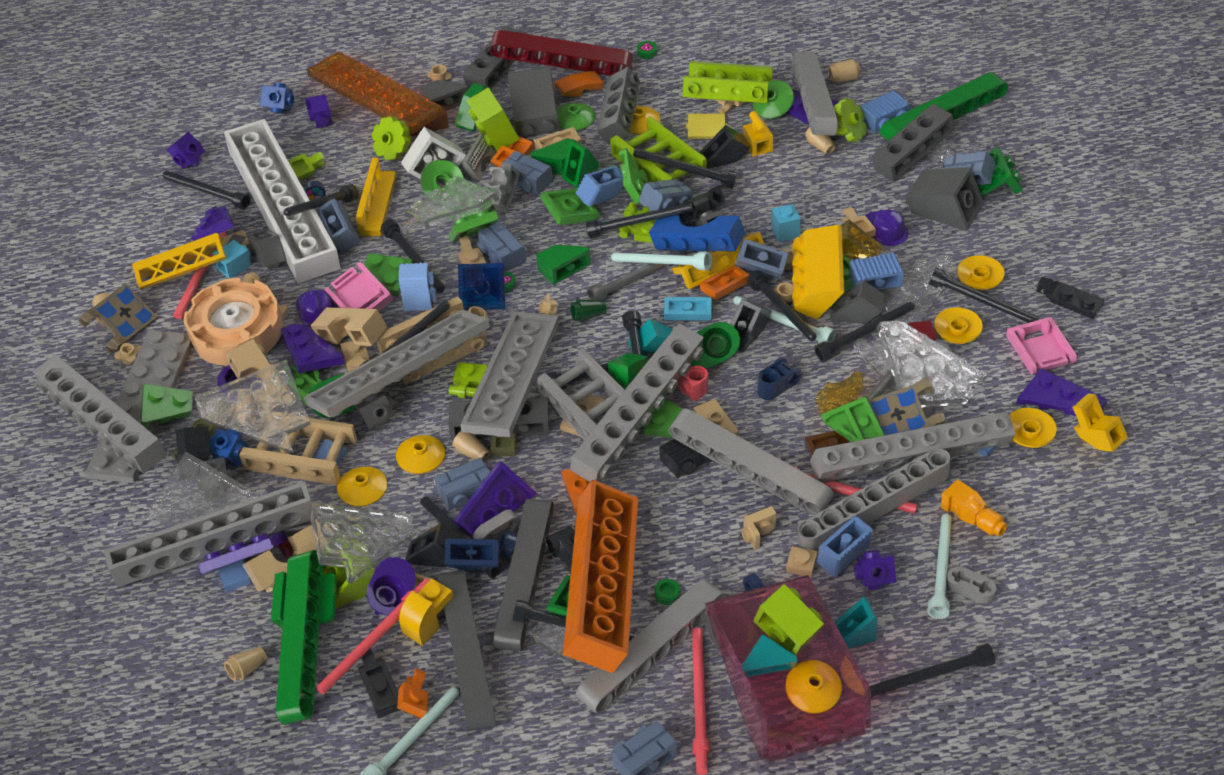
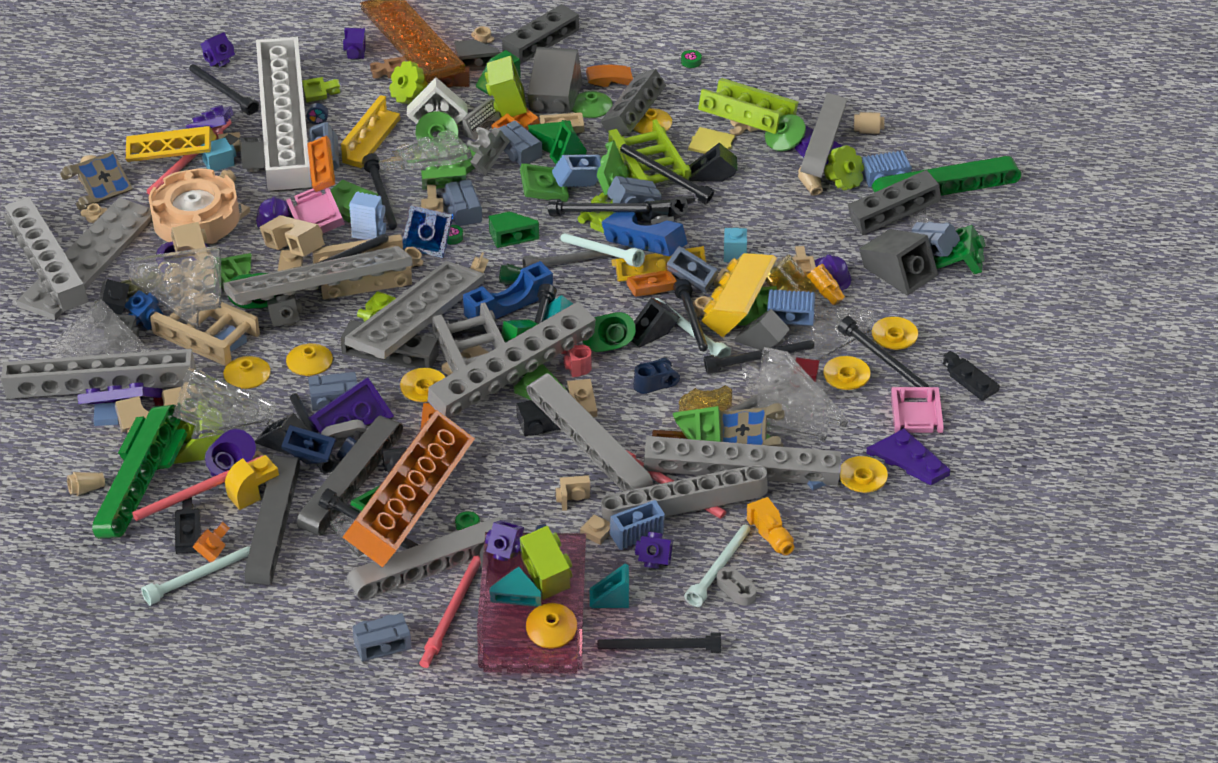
camera: 15 degrees right, 5 degrees down
(164, 404) = (105, 261): bright green wing -> none
(277, 97) = (320, 21): blue brick -> none
(308, 349) = (251, 248): dark purple wing -> none
(346, 193) = (345, 122): black piece -> none
(347, 243) = (321, 163): none -> orange tile
(363, 127) = (386, 68): none -> medium nougat plate
(470, 446) = (353, 361): tan cone -> none
(503, 446) = (384, 369): olive tile -> none
(549, 444) = (416, 383): none -> yellow dish
(559, 53) = (601, 41): dark red beam -> none
(600, 331) = (517, 296): none -> blue arch
(687, 308) = (606, 297): medium azure plate -> none
(736, 609) = (504, 540): none -> dark purple brick
(758, 135) = (751, 161): yellow brick -> none
(892, 240) = (826, 284): none -> light orange hinge
(1097, 429) = (922, 488): yellow brick -> none

